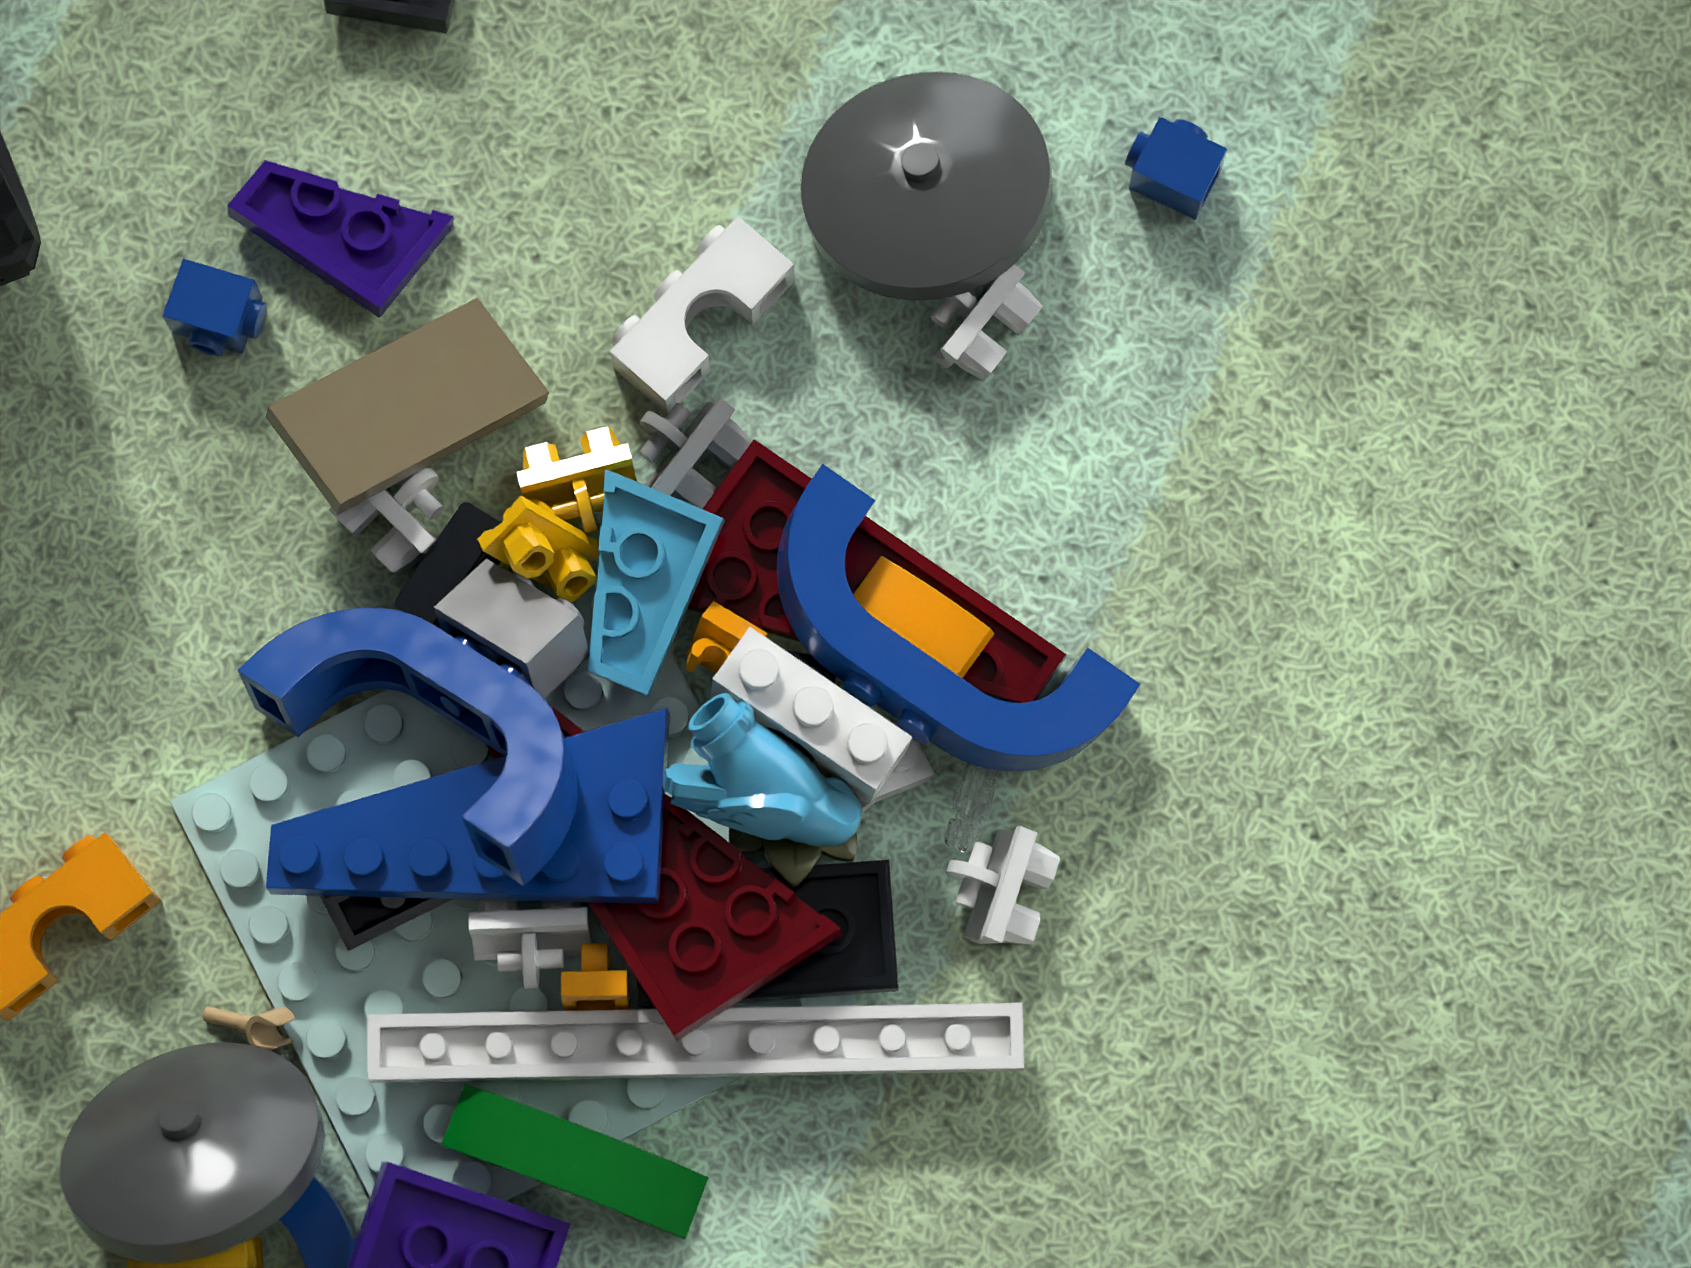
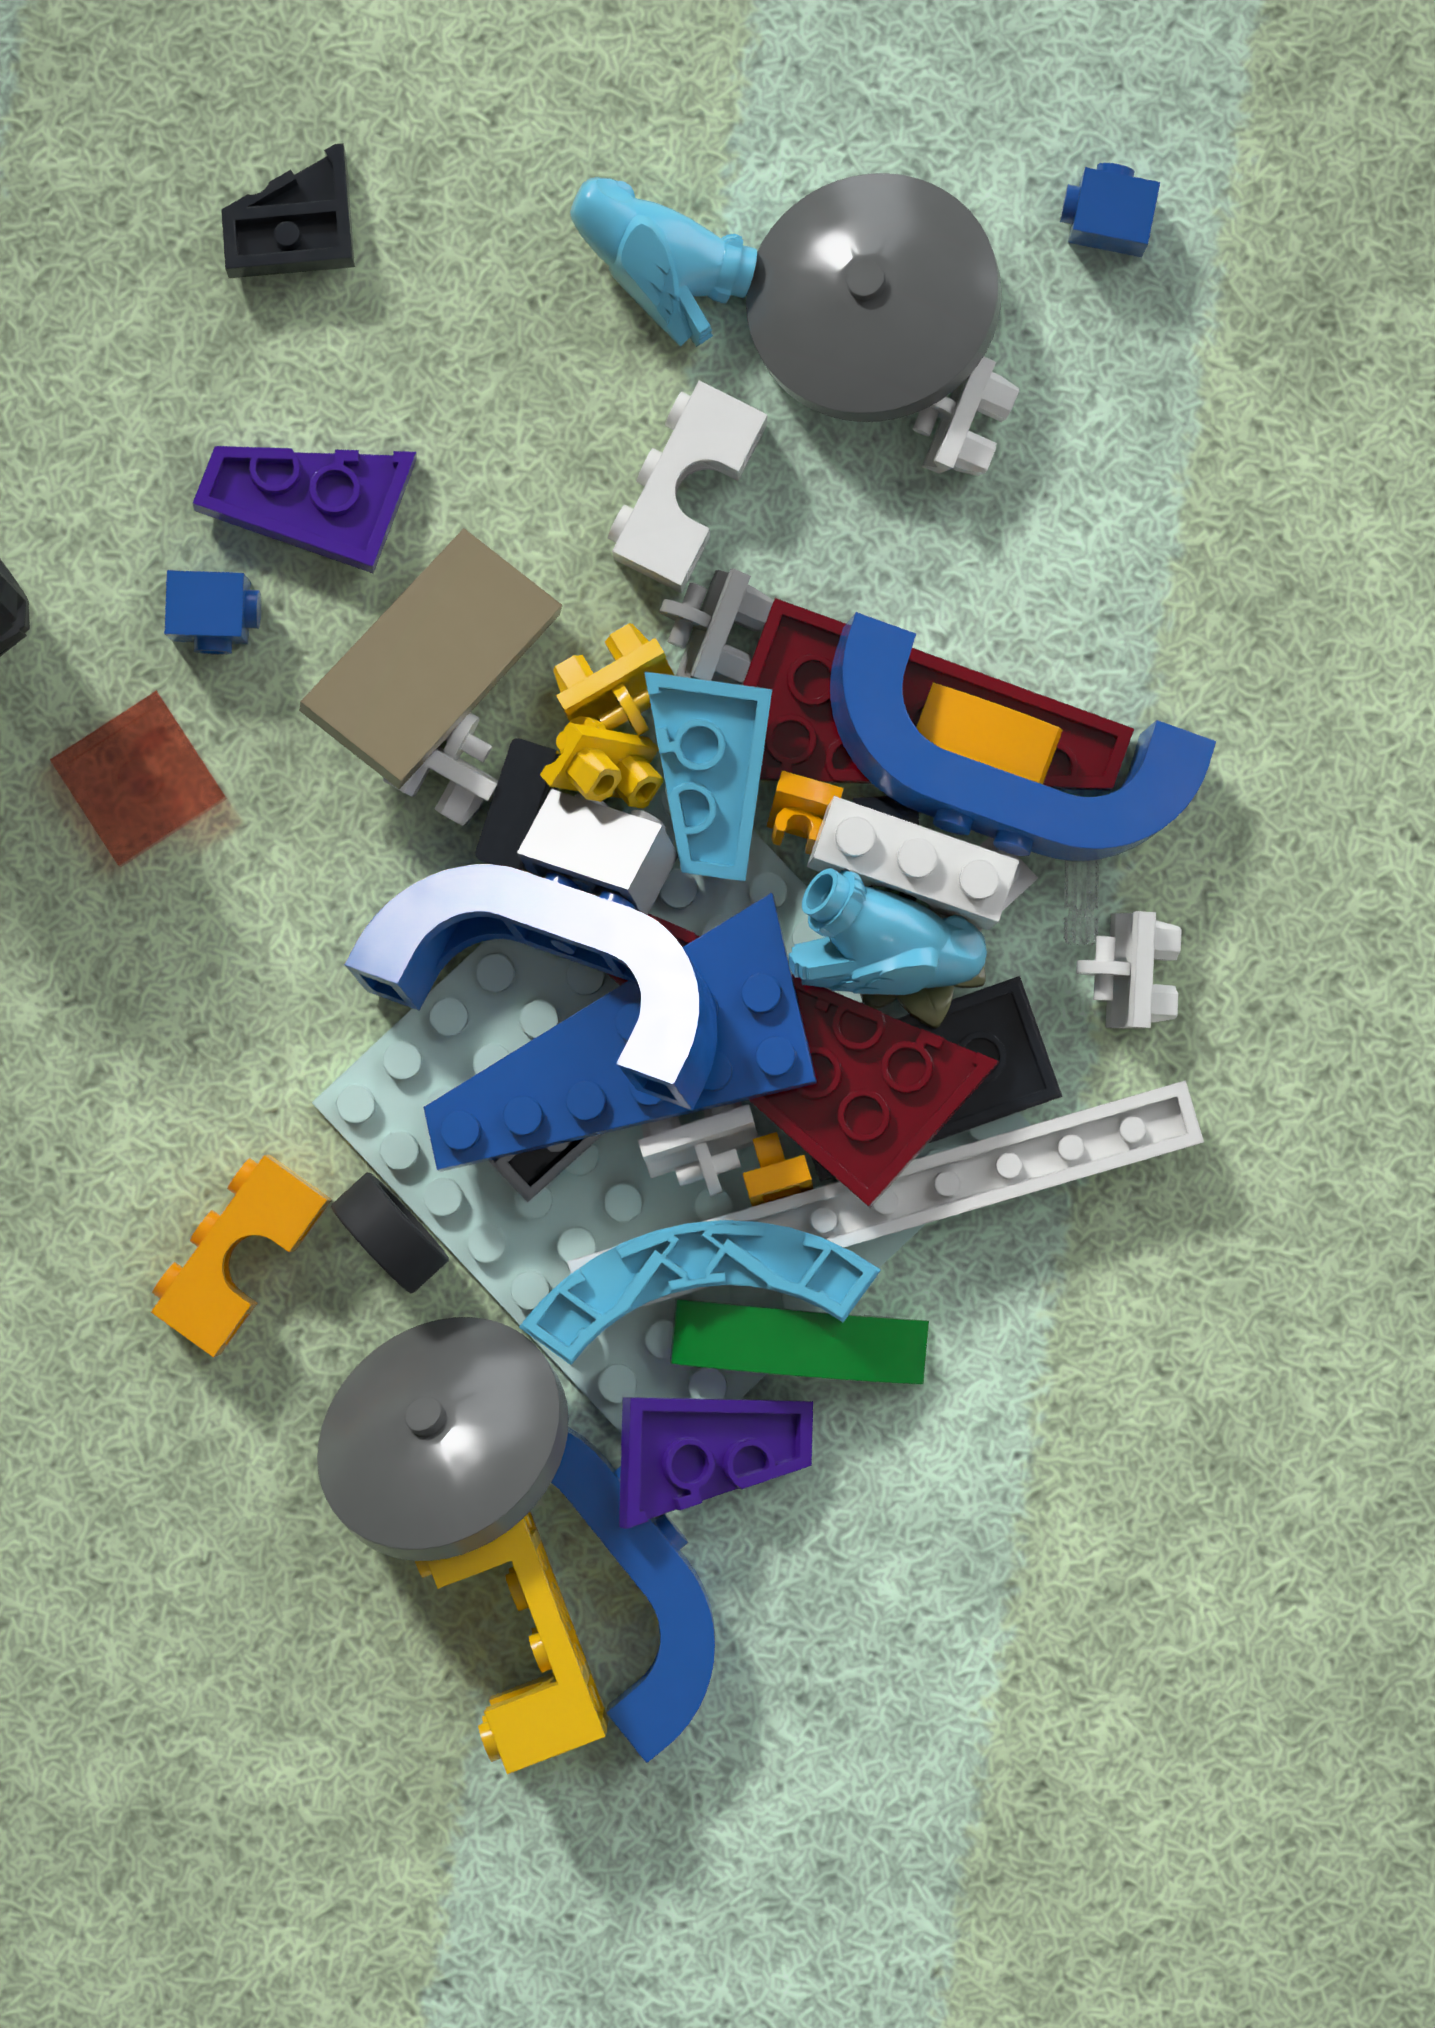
camera: 15 degrees left, 10 degrees up
(99, 450) = (138, 779): none -> clear red tile
(203, 940) = (389, 1232): none -> black tyre
(259, 1029) = (466, 1299): tan hand -> none
(489, 1043) = (694, 1258): none -> medium azure tile
(736, 95) = (662, 256): none -> medium azure animal

